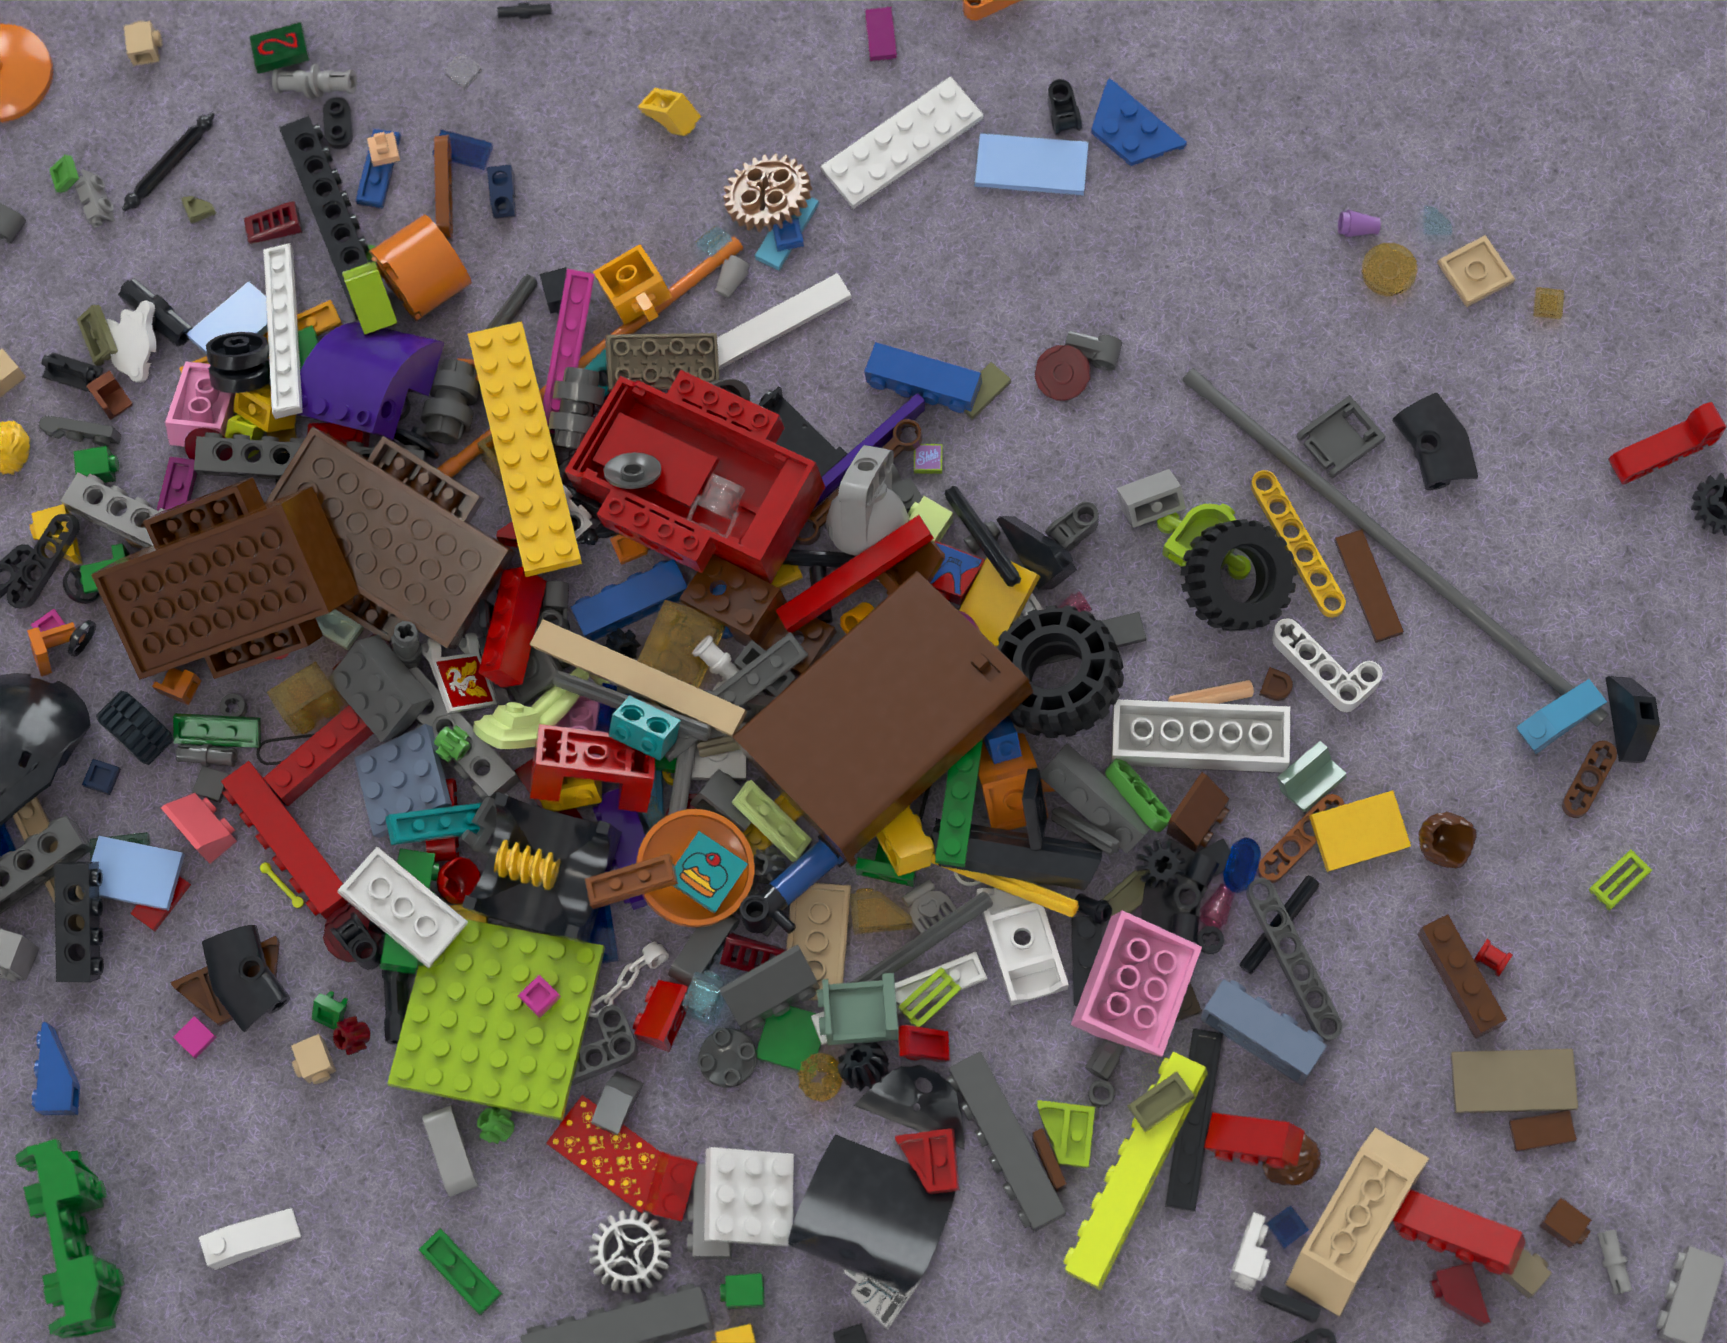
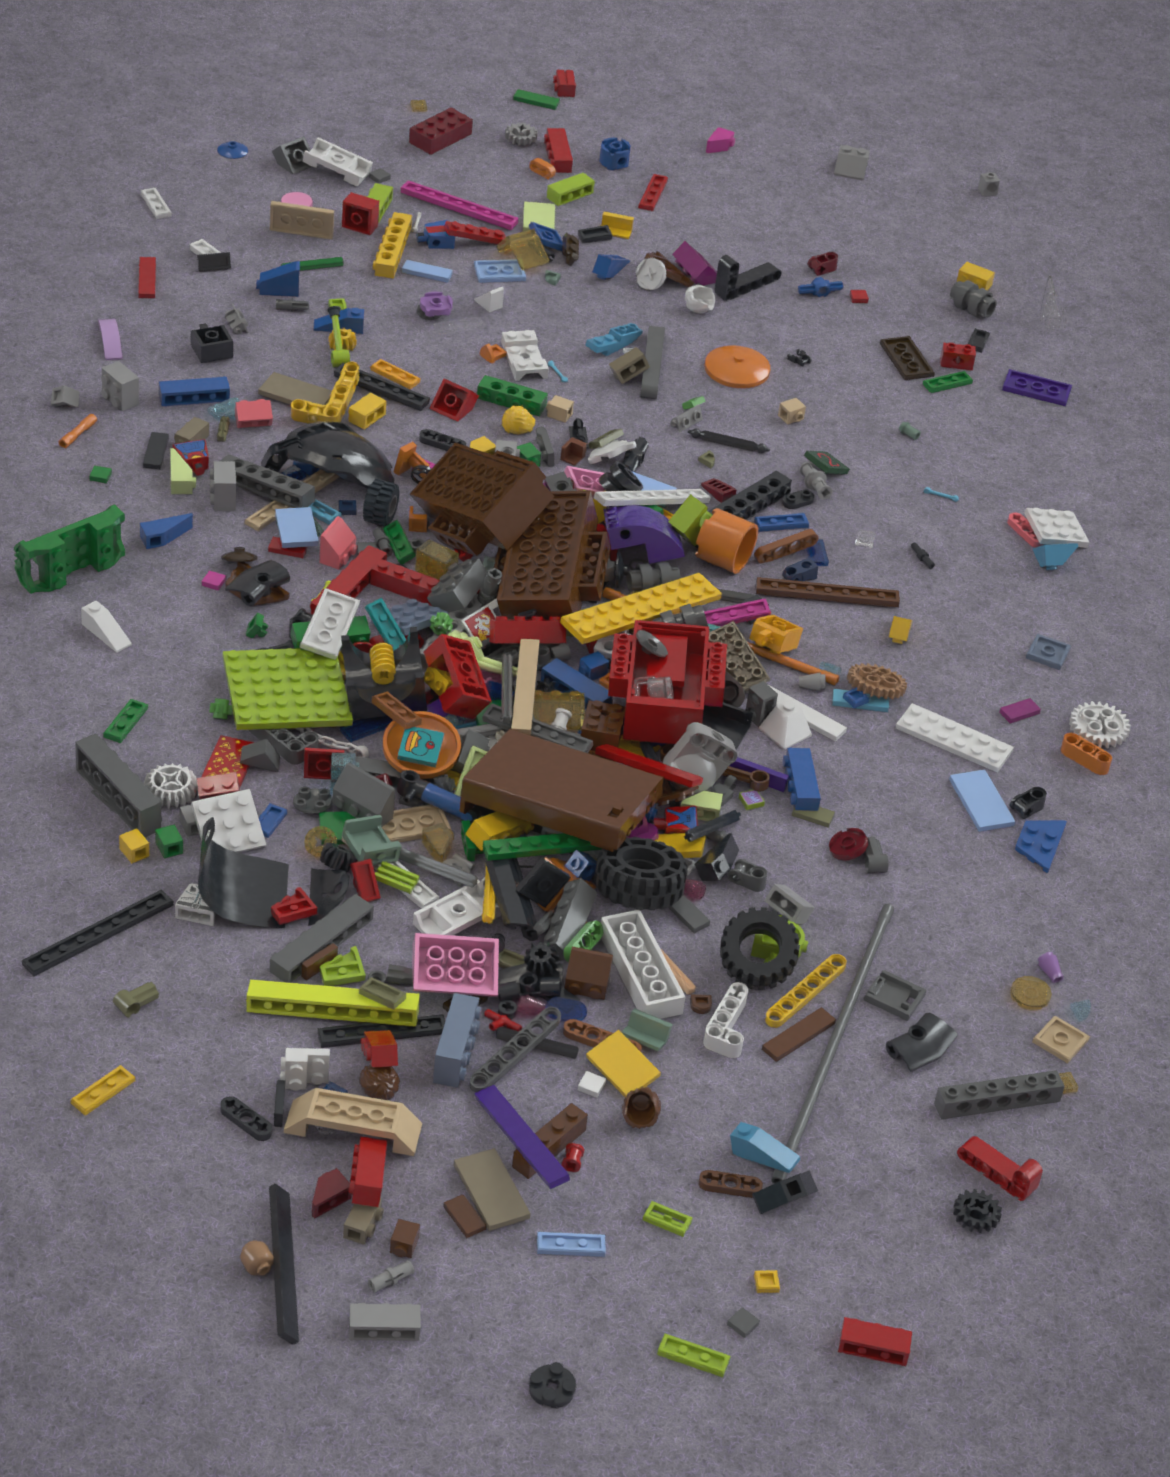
camera: 55 degrees right, 30 degrees down
(45, 563) = (439, 448): black beam -> none
(68, 935) = (256, 510): black brick -> none
(121, 816) = (321, 514): none -> medium azure tile
(163, 982) = (239, 555): none -> dark brown dish
(313, 1060) = (224, 626): tan brick -> none
(351, 1035) = (245, 637): dark red gear -> none
(383, 148) = (793, 516): light nougat tile -> none
(449, 1151) = (195, 695): light grey beam -> none
(539, 996) = (306, 695): dark pink tile -> none
(555, 174) = (827, 592): none -> reddish brown plate
(595, 560) = (594, 666): none -> blue brick
(644, 728) = (493, 688): teal brick -> none
(741, 1129) = (271, 818): none -> blue tile
(765, 368) = (760, 702): none -> dark grey brick
(808, 352) = (786, 725): none -> white slope
(1229, 955) = (501, 1021): none -> red piece
(1372, 882) = (591, 1084): none -> white tile
(1465, 1014) = (522, 1137): none -> dark purple tile
(1553, 391) = (999, 1094): none -> dark grey brick
(1625, 1015) = (571, 1244): none -> light blue tile

